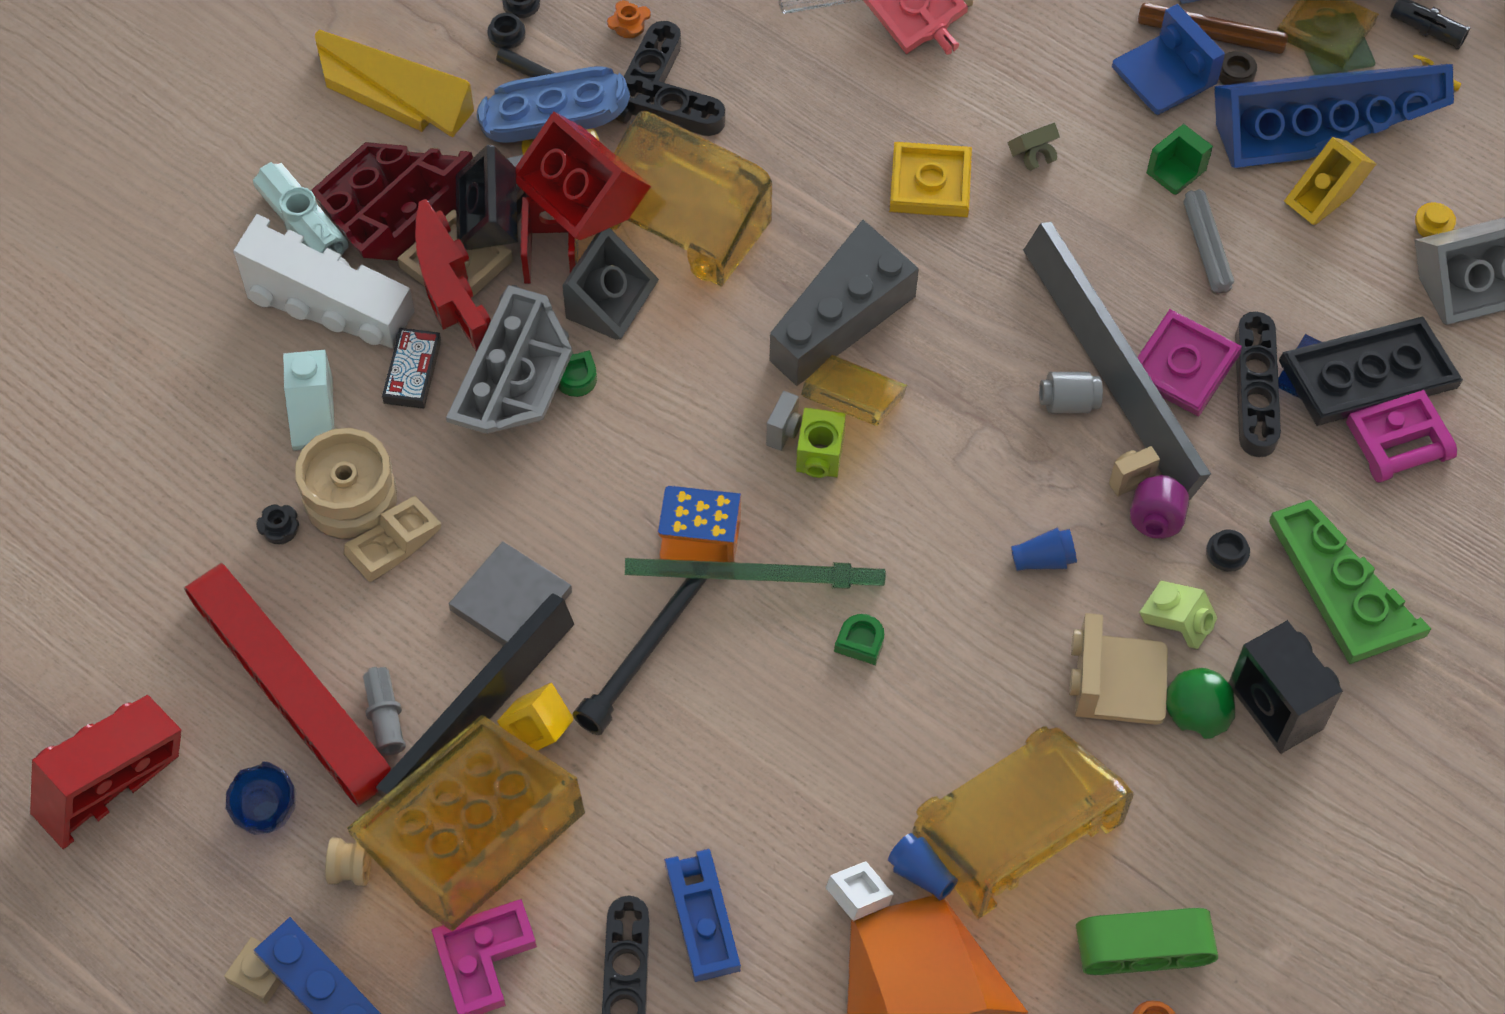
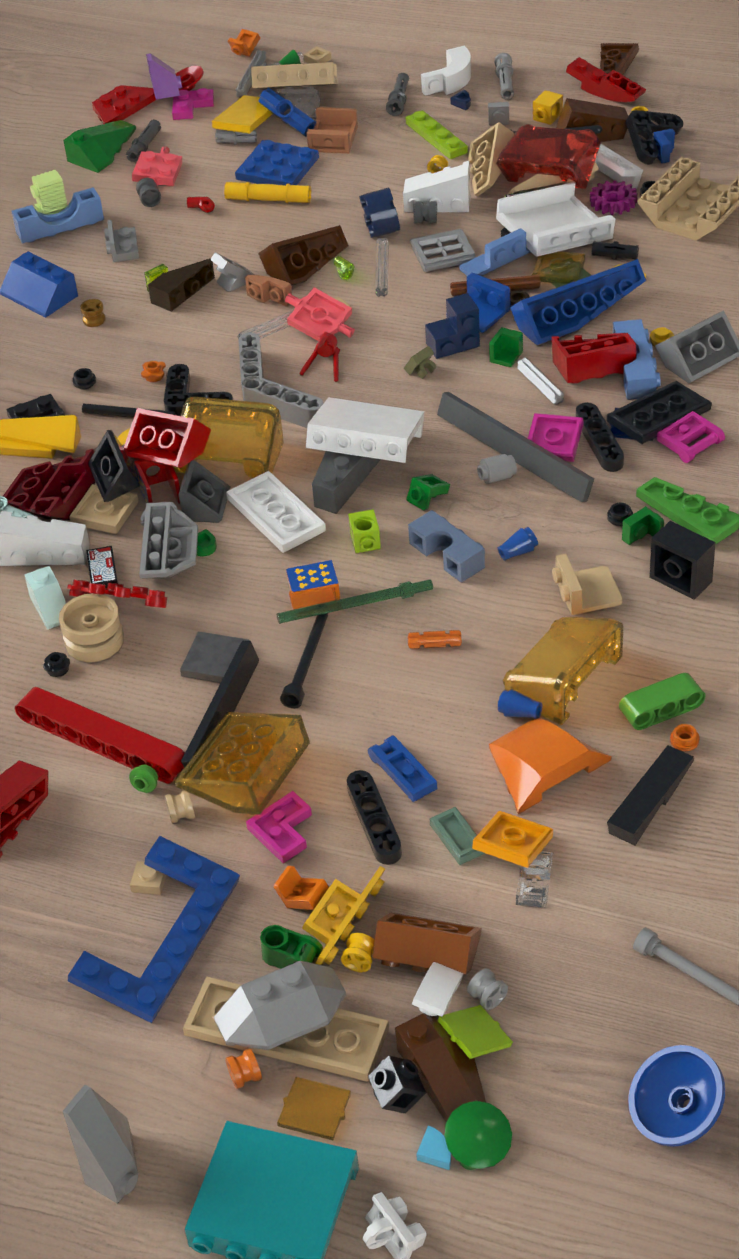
camera: 15 degrees left, 15 degrees down
(261, 799) = (112, 791): clear blue hair -> none
(318, 788) = (143, 778): none -> bright green plate
(383, 711) = (164, 730): light grey axle -> none
(394, 540) = (131, 651): tan slope -> none
(407, 432) = (155, 598): none -> red plant
(429, 40) = (40, 407): none -> black plate
(446, 276) = (105, 516): red slope -> none
(506, 31) = (81, 394): black plate -> none
(523, 106) = (121, 417): medium blue tile -> none
(537, 717) = (260, 702): yellow panel -> none
(704, 355) = (276, 511): none -> white plate
(776, 128) = (292, 404): none -> light grey beam
(784, 421) = (338, 527): light grey plate -> none
(847, 685) = (434, 639): none -> orange axle
(854, 390) = (372, 500): clear yellow tile -> none
(859, 891) = (488, 728): white plate -> none
(861, 638) = (431, 616): green tile -> none
(890, 256) = (364, 429): none -> white panel
(901, 65) = (325, 347): none -> red plant
(926, 486) = (460, 553): none -> sand blue arch
(931, 179) = (369, 390): yellow tile -> none
(946, 393) = (424, 488): none -> green bracket
(1110, 104) = (456, 332): none -> dark blue brick
(1132, 469) = (550, 493): tan plate -> none
(1159, 507) = (572, 505): magenta head -> none
(1180, 610) = (607, 546): yellowish green bracket -> none
(1201, 702) = (639, 585): green hair -> none
(1249, 584) = (640, 524): none -> green bracket
(1308, 230) = (592, 358): none -> red wedge
(1329, 180) = (596, 323): yellow slope -> none
(1367, 289) = (641, 374): none -> medium blue arch

